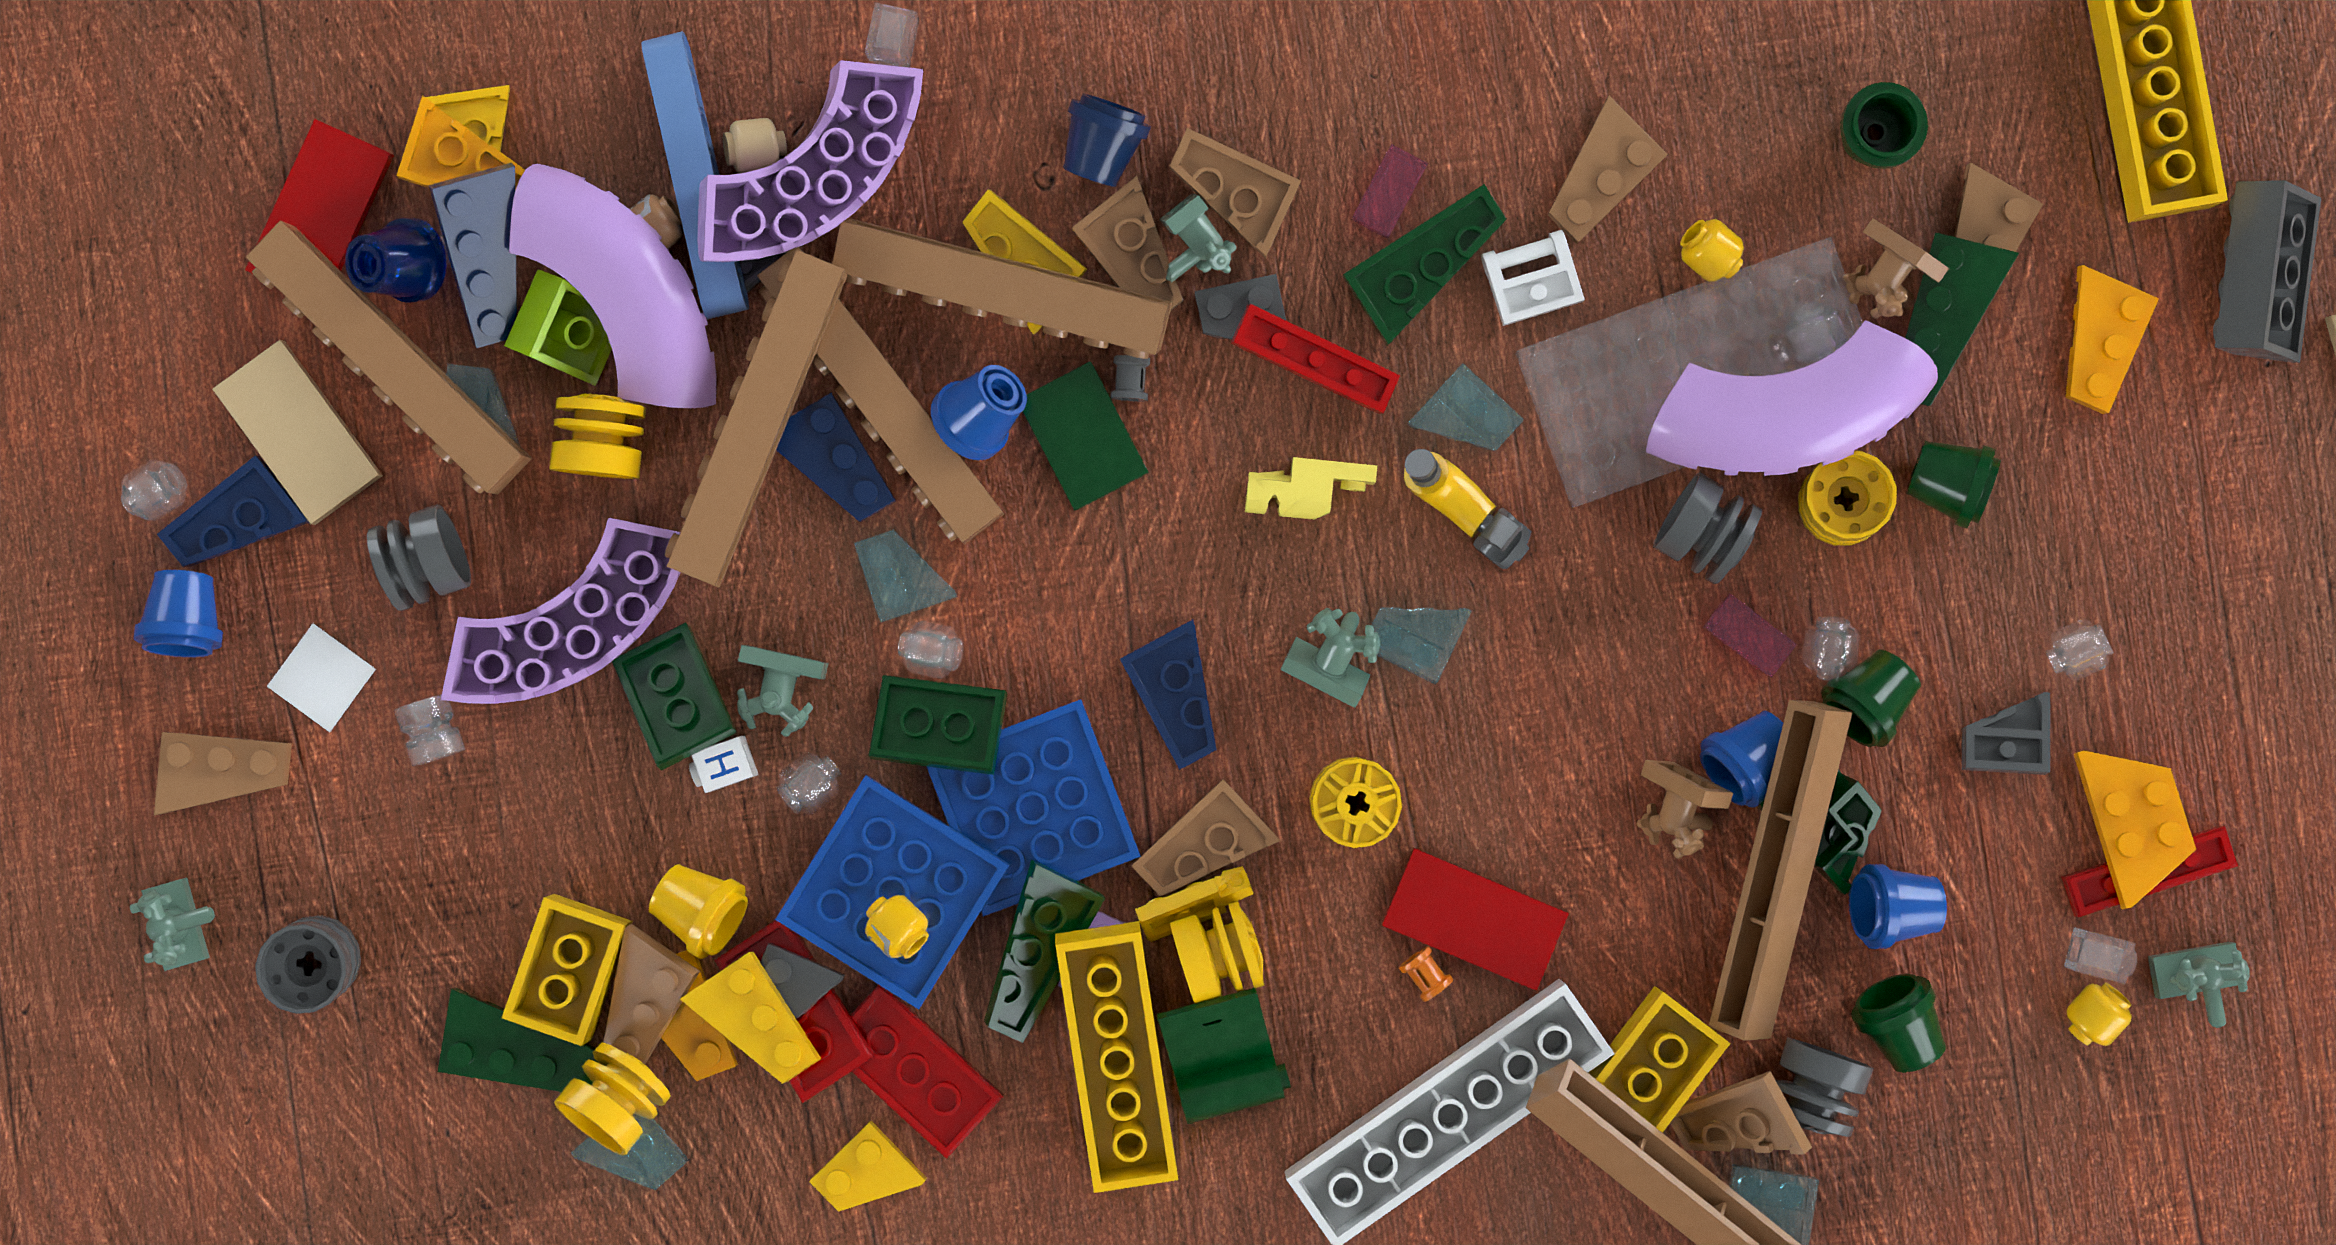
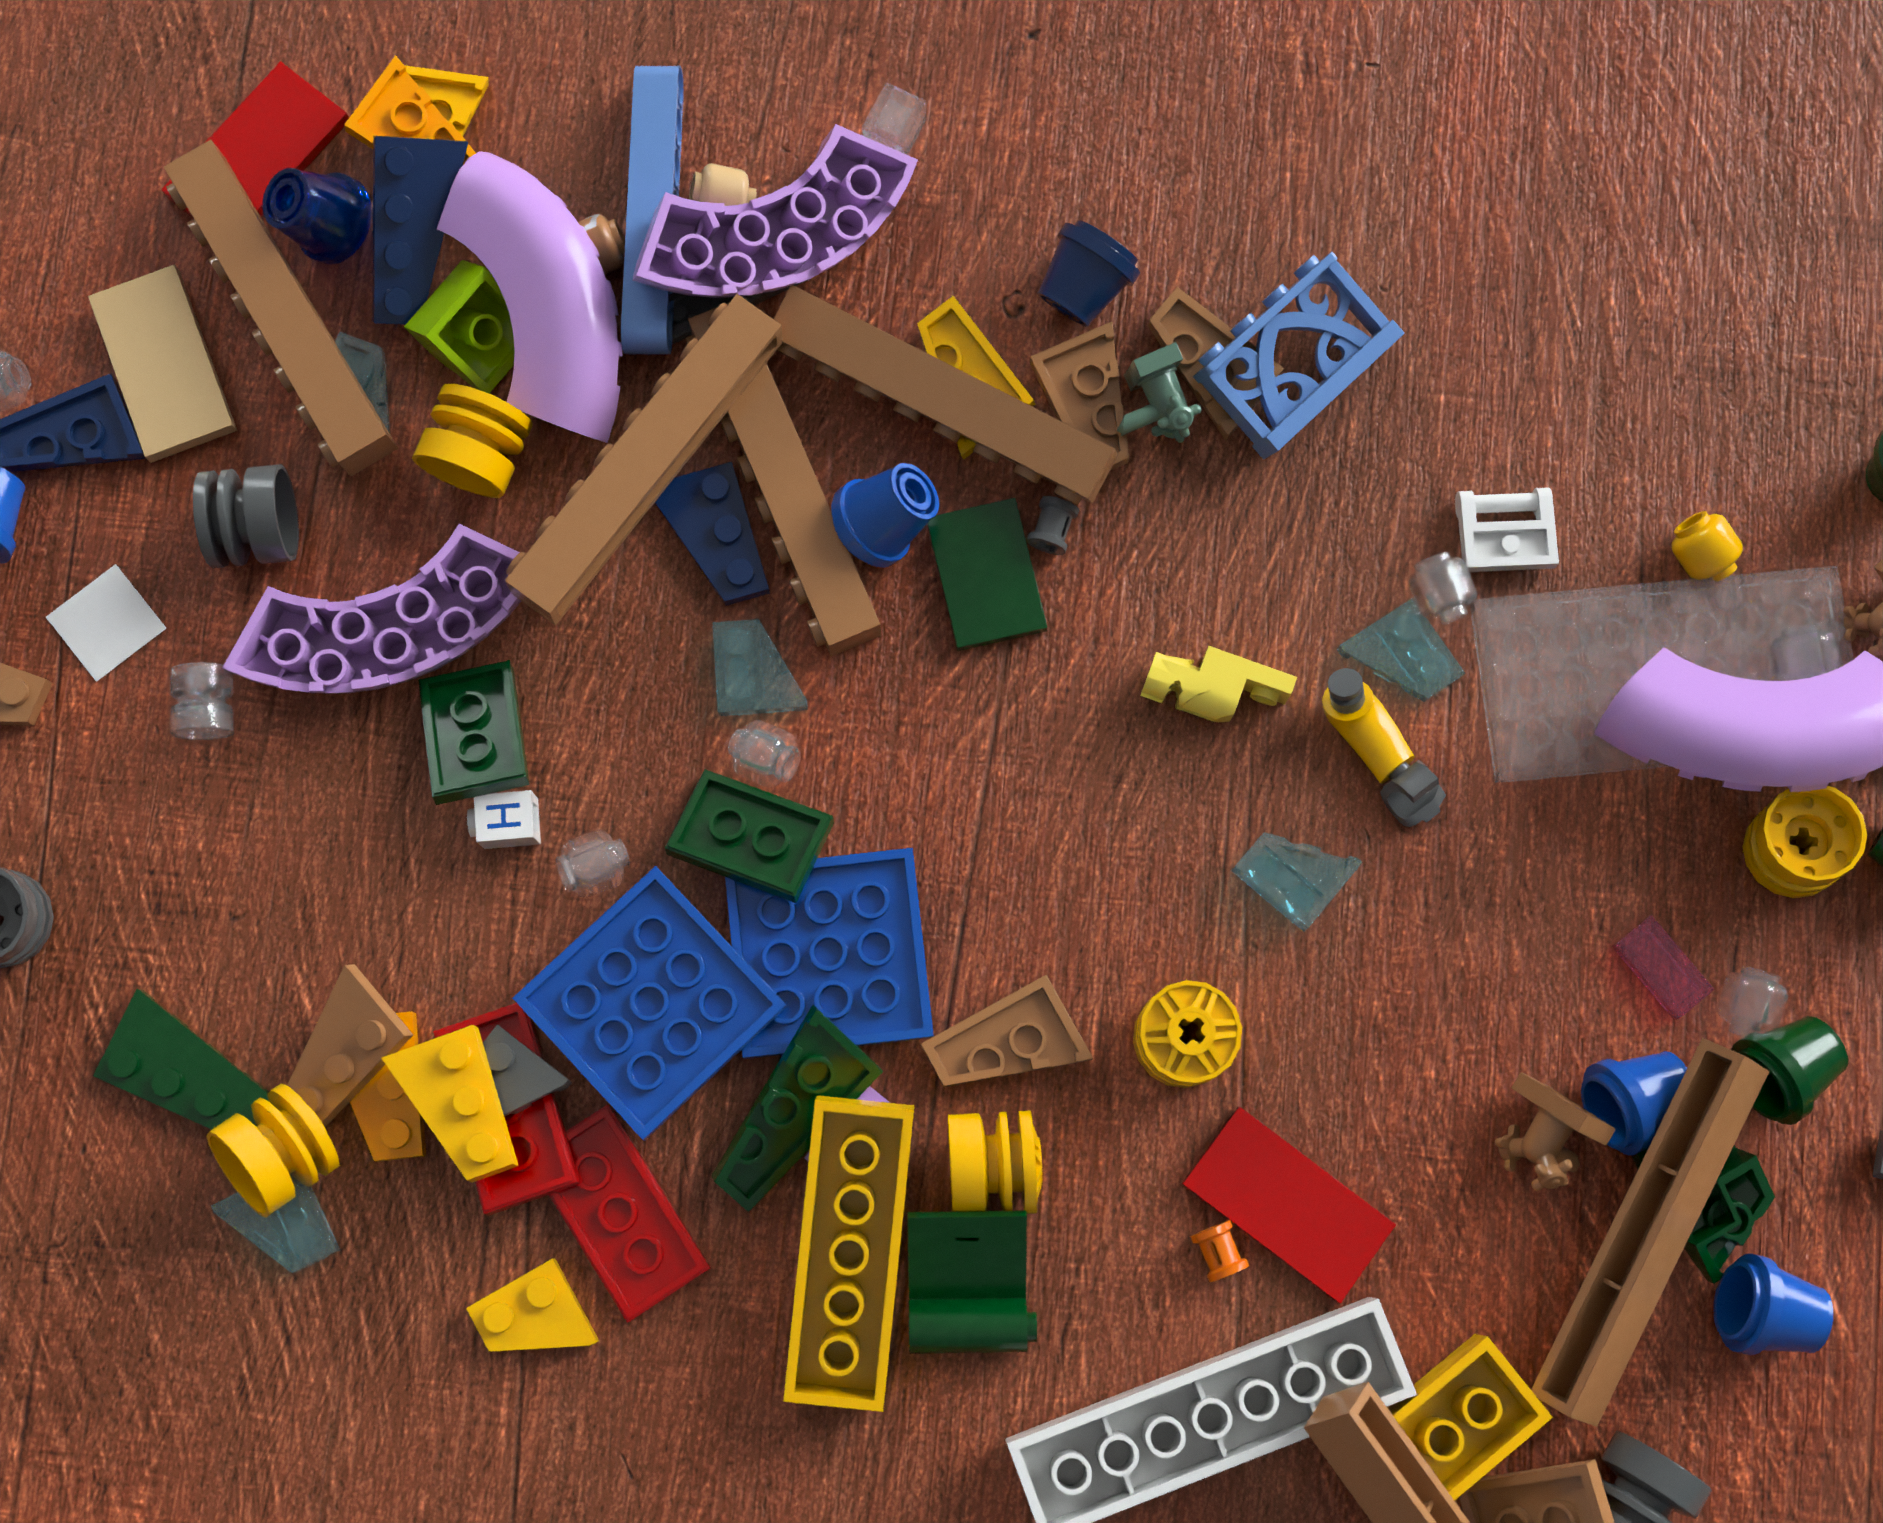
camera: 10 degrees right, 10 degrees down
(566, 970) = (266, 997): yellow brick -> none
(699, 908) = (433, 967): yellow piece -> none
(777, 686) = (589, 749): sand green piece -> none
(896, 926) = (643, 1037): yellow head -> none
(1174, 692) = (1015, 867): dark blue wing -> none
(1196, 899) = (984, 1098): yellow hinge -> none
(1224, 305) = (1193, 491): dark grey wing -> none
(1315, 359) = (1256, 552): red plate -> none
(1329, 666) = (1193, 880): sand green piece -> none
(1364, 150) = (1357, 352): none -> medium blue fence
(1389, 191) = (1373, 405): clear pink tile -> none
(1418, 265) = (1386, 486): dark green wing -> none
(1487, 349) = (1443, 588): none -> clear head
(1605, 171) = (1607, 441): medium nougat wing -> none
(1707, 528) = (1644, 834): dark grey wheel -> none
(1901, 1021) = (1753, 1446): dark green piece -> none

